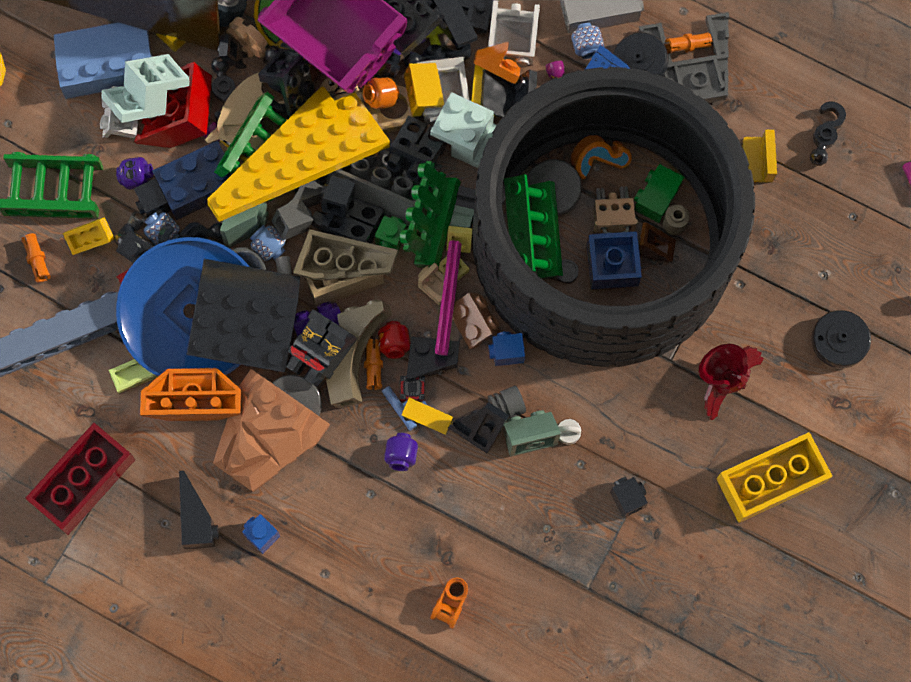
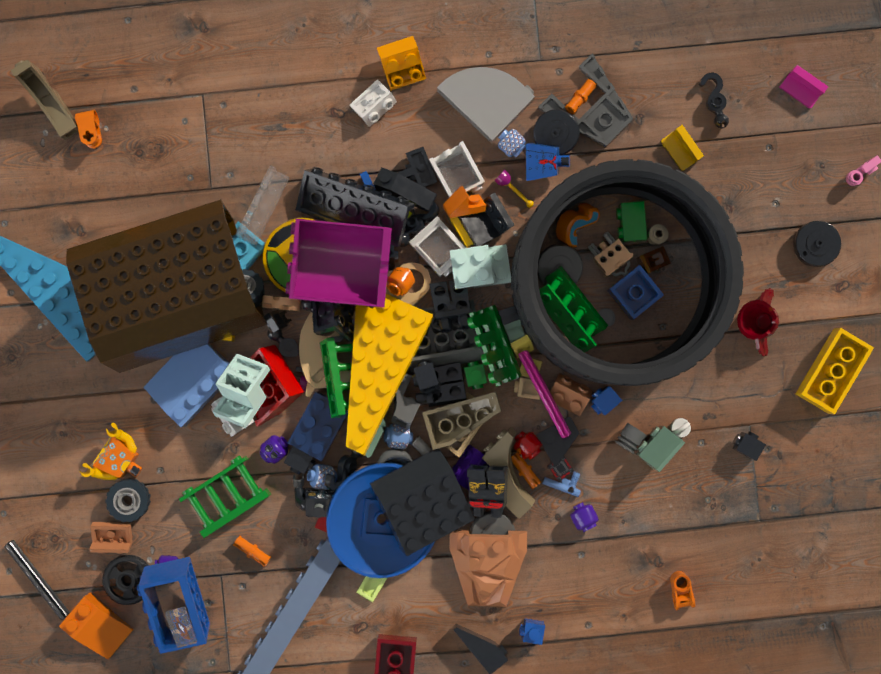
camera: 30 degrees left, 15 degrees up
(88, 236) = (278, 514): yellow tile -> none
(191, 396) = (425, 575): orange wedge -> none
(423, 87) = (426, 257): yellow panel -> none
(427, 416) = (583, 480): yellow sticker -> none
(480, 426) = (624, 466): black wing -> none

